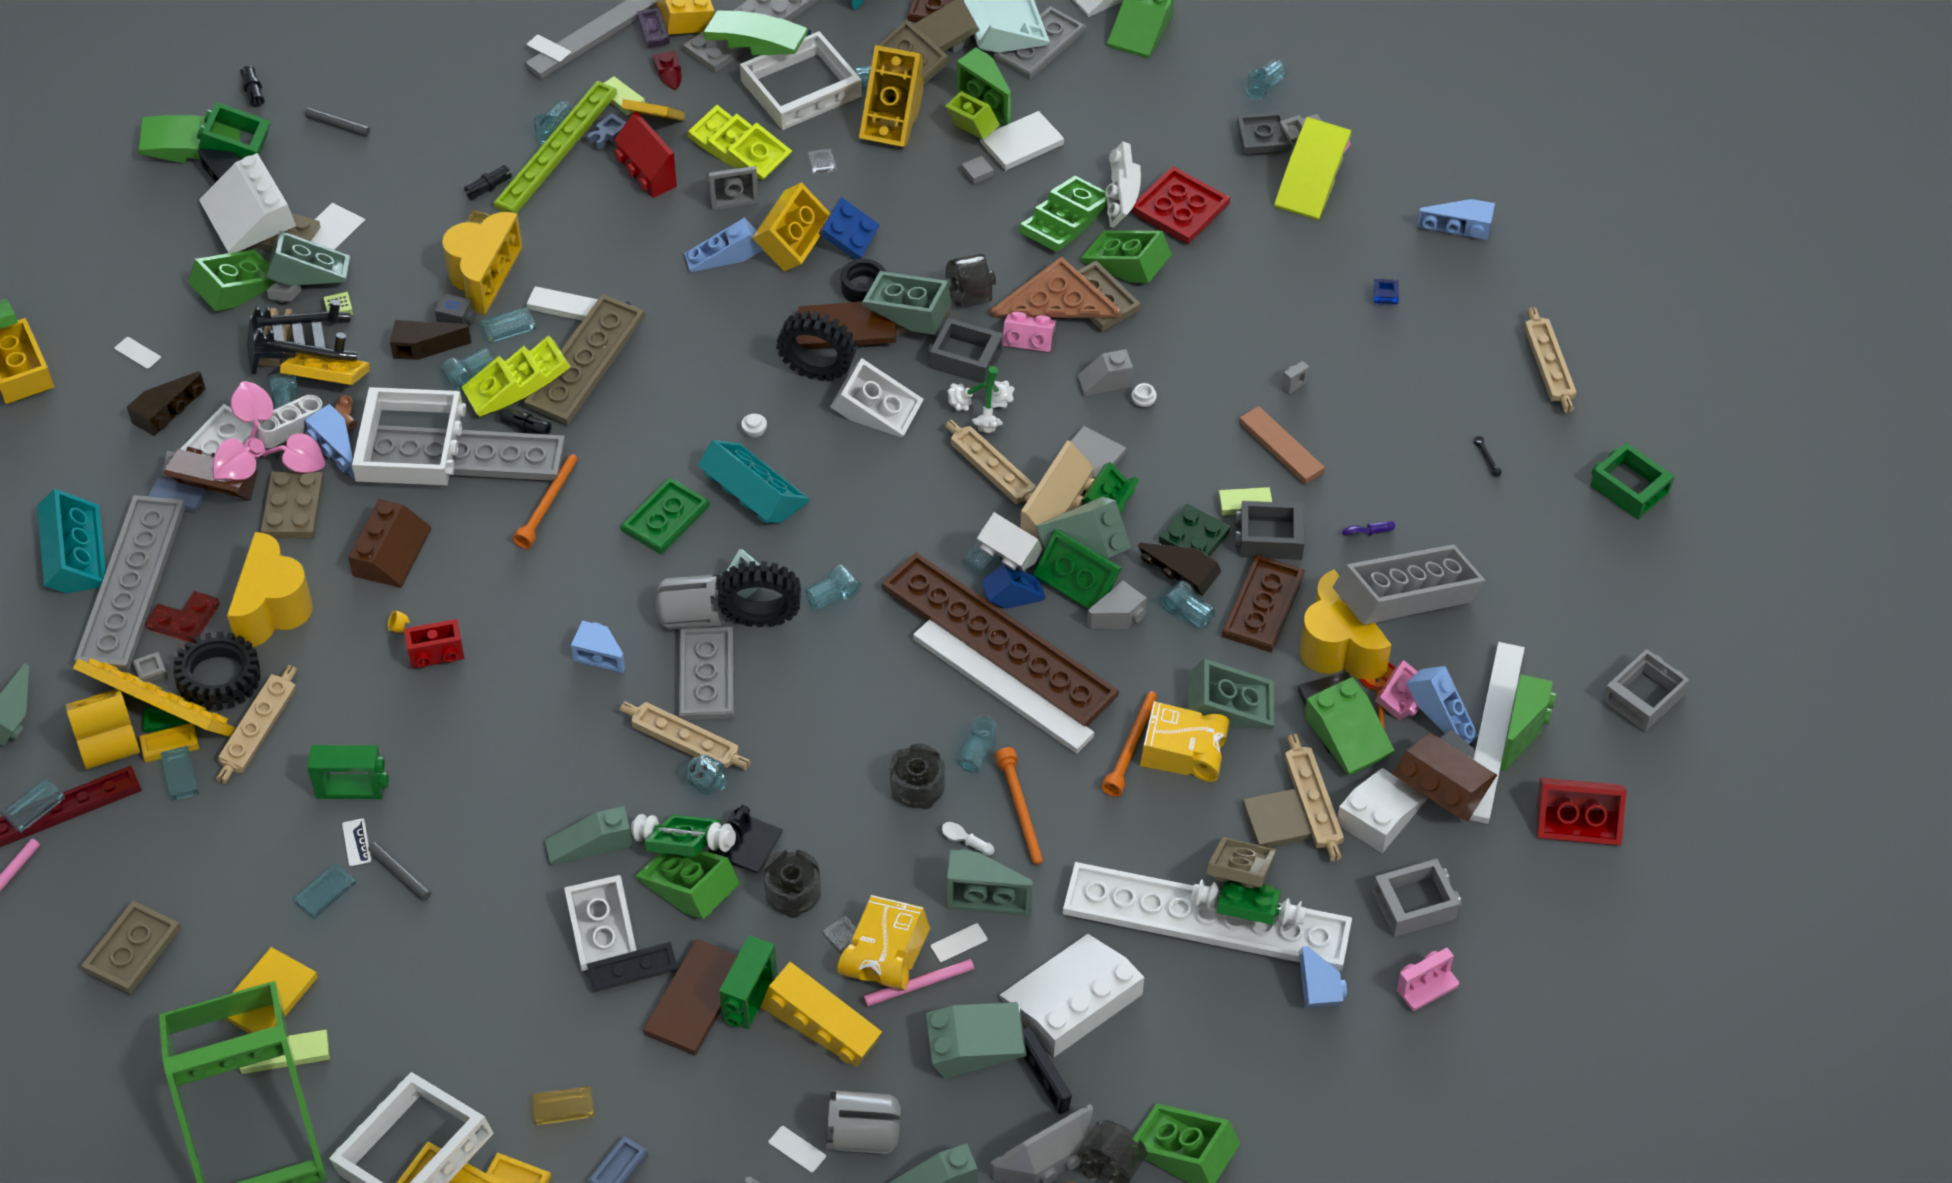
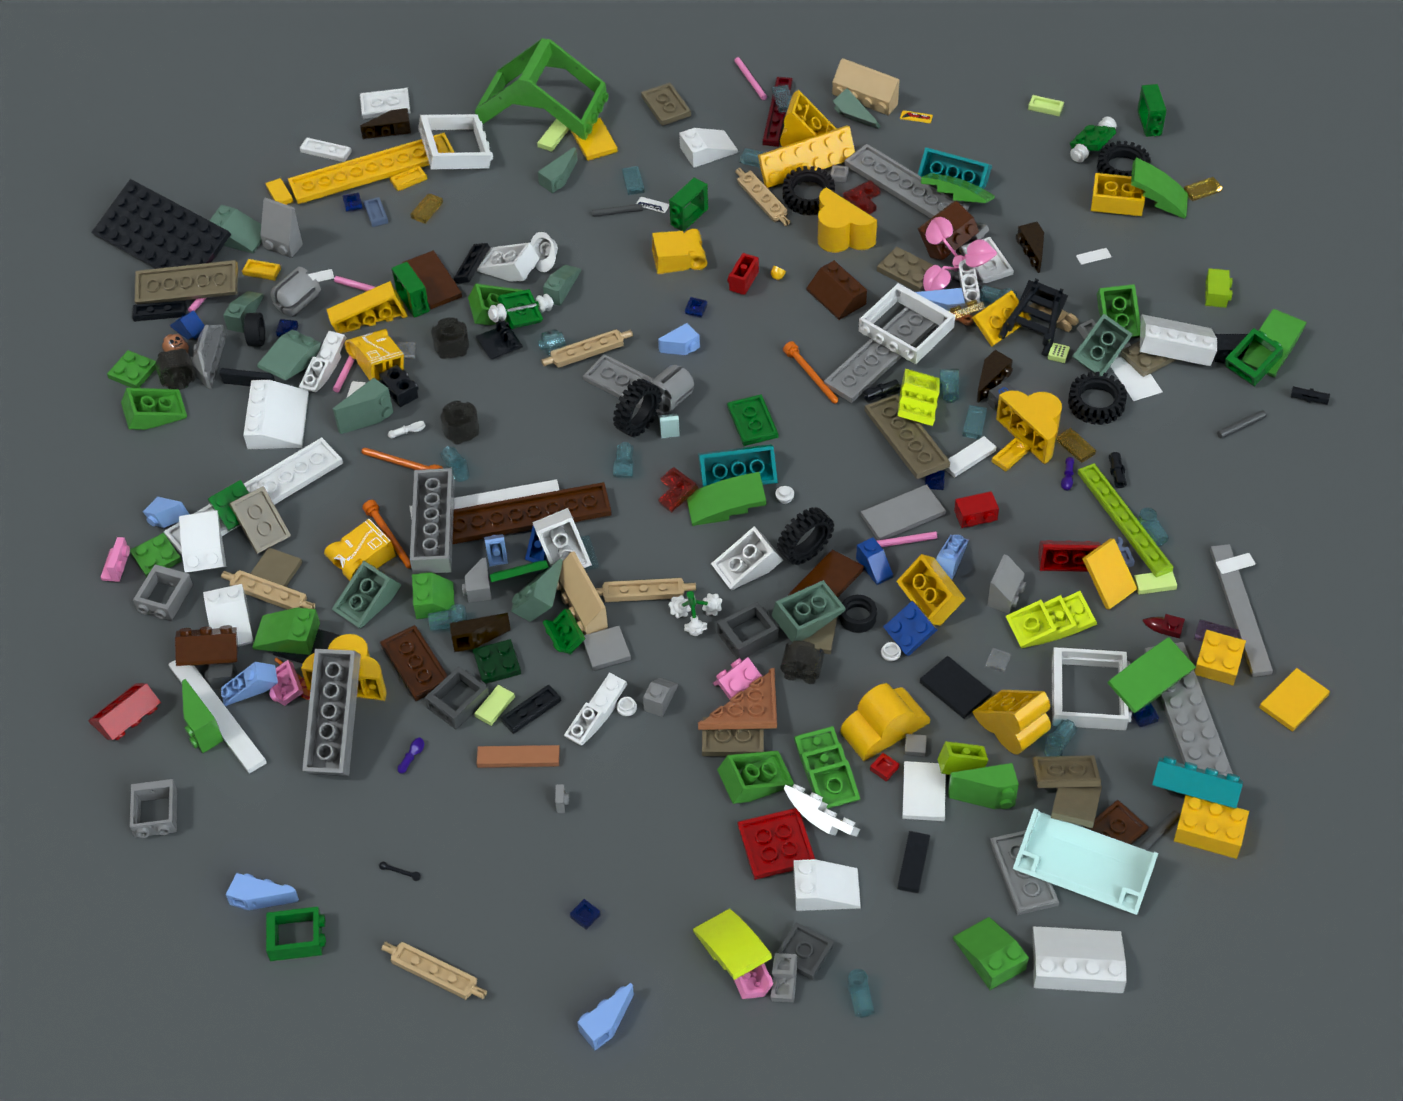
camera: 130 degrees right, 0 degrees up
(114, 511) = (960, 188): none -> bright green slope
(127, 216) = (1218, 288): none -> lime brick
(196, 842) = (705, 145): none -> white slope
(342, 398) = (971, 306): none -> clear yellow plate
(377, 981) = (557, 172): none -> sand green slope
(391, 219) = (1097, 382): none -> black tyre
(440, 743) = (678, 251): none -> yellow piece
(525, 668) = (696, 307): none -> clear blue plate
(532, 275) = (1010, 454): none -> yellow tile
(535, 214) = (1067, 481): none -> dark purple piece
(546, 886) = (546, 250): none -> white piece
(645, 253) = (976, 509): none -> red brick
(694, 318) = (903, 513): none -> light grey tile
(735, 303) = (907, 539): none -> bright pink bar
(772, 1067) = (358, 285): none -> bright pink bar
(782, 303) = (874, 560): none -> blue slope
(809, 463) = (726, 498): none -> bright green slope
(833, 508) = (679, 489): none -> clear red plate
(883, 174) = (955, 687): none -> black tile
(886, 237) = (891, 651): none -> white plate
(913, 1006) = (325, 362): none -> white slope
(915, 890) = (400, 386): none -> black brick
(919, 1104) = (285, 326): none -> clear blue plate
(965, 1117) = (254, 329): none -> black tyre
(978, 191) = (882, 720): none -> yellow brick
(1025, 174) = (884, 766): none -> red plate
(1064, 614) = (496, 550): none -> light blue slope
(1090, 682) = (432, 521): none -> light grey brick
(1102, 112) = (913, 862): none -> black tile
(1176, 639) = (431, 594): none -> bright green slope
(1179, 412) = (597, 710): none -> white slope
(1192, 151) = (825, 886): none -> white slope
(1220, 470) = (530, 709): none -> black tile
(1330, 888) = (201, 542): none -> white slope
(1375, 957) = (155, 552): none -> bright green plate
(1631, 538) = (254, 893): none -> light blue slope

